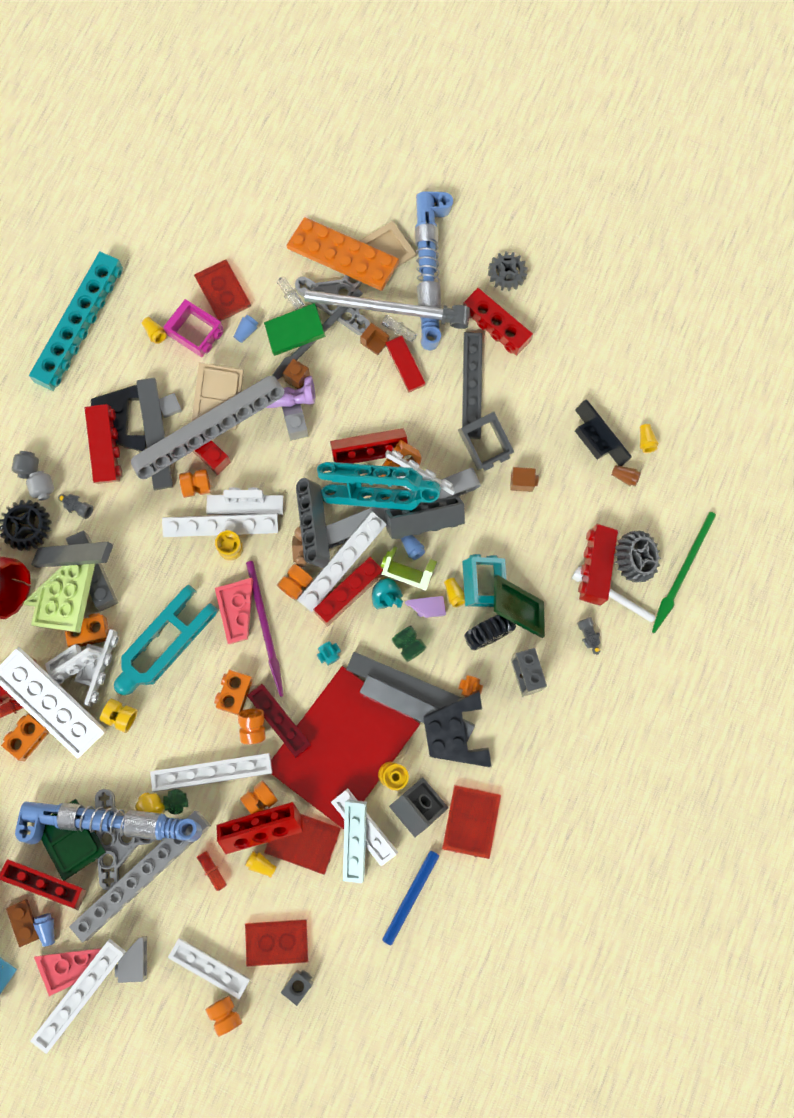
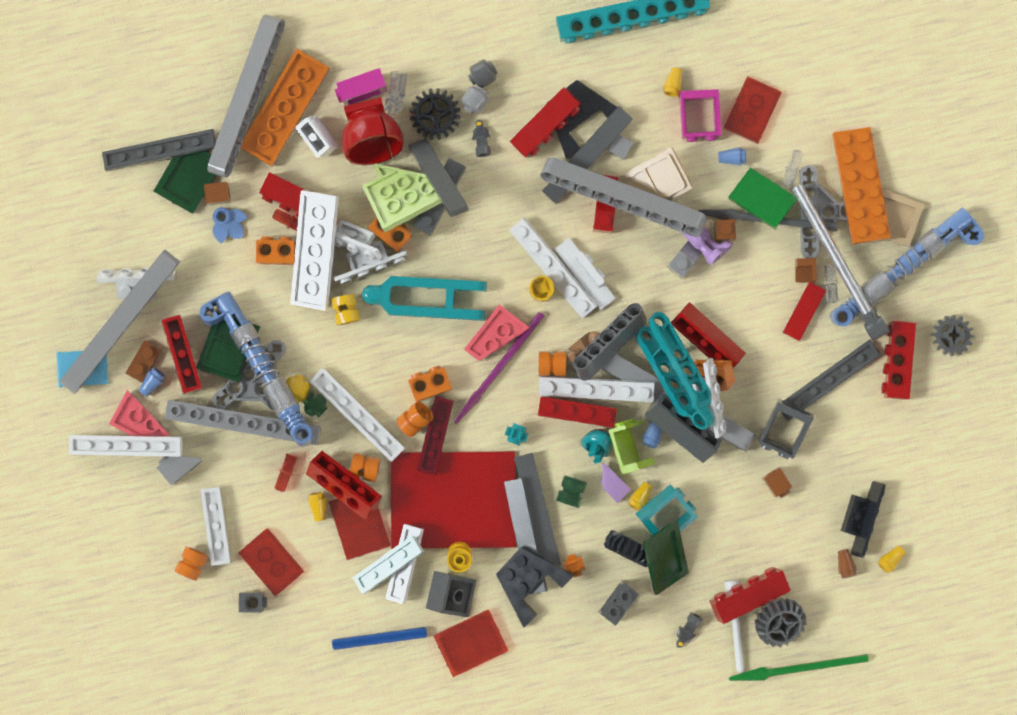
camera: 55 degrees right, 10 degrees up
(194, 483) = (571, 221): orange wheel -> none

